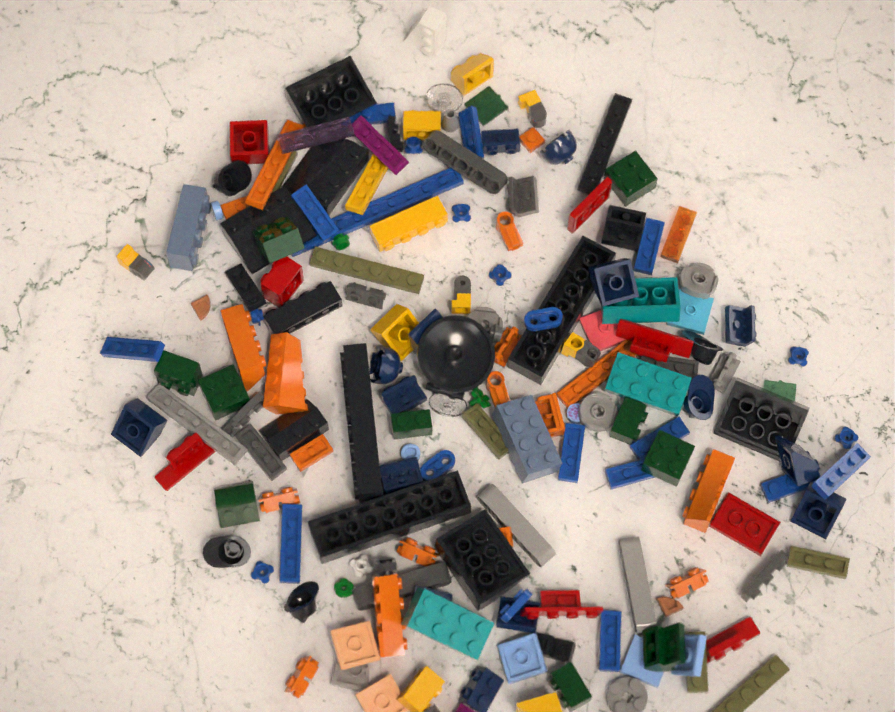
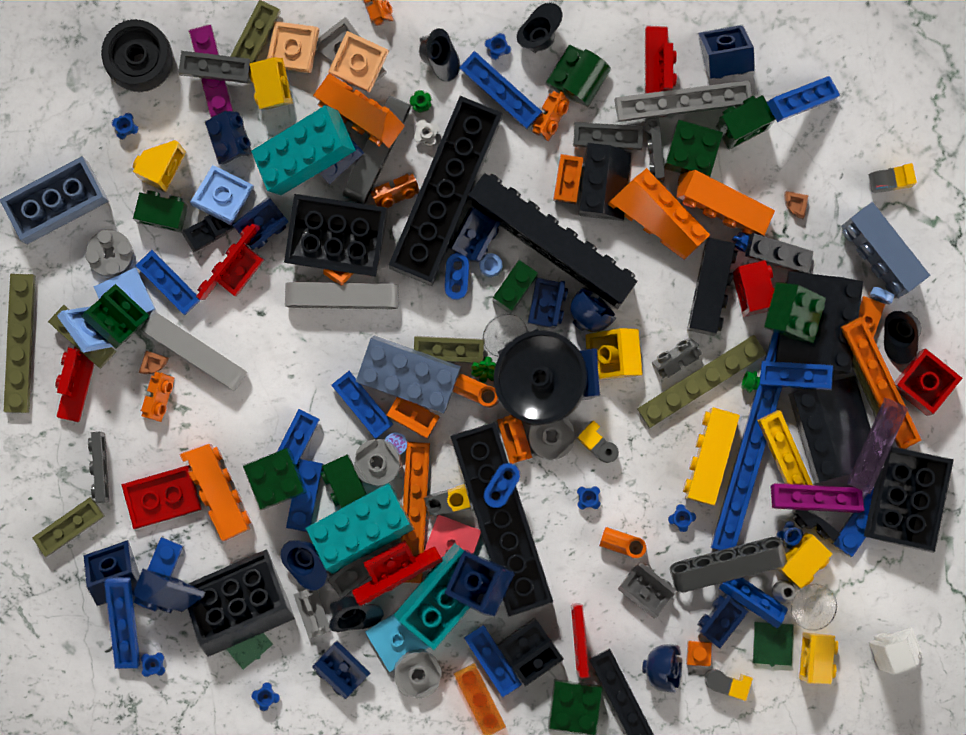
camera: 130 degrees right, 15 degrees up
(386, 567) = (401, 143): black plate -> none
(495, 333) = (531, 435): dark grey plate -> none
(509, 611) = (265, 222): blue plate -> none

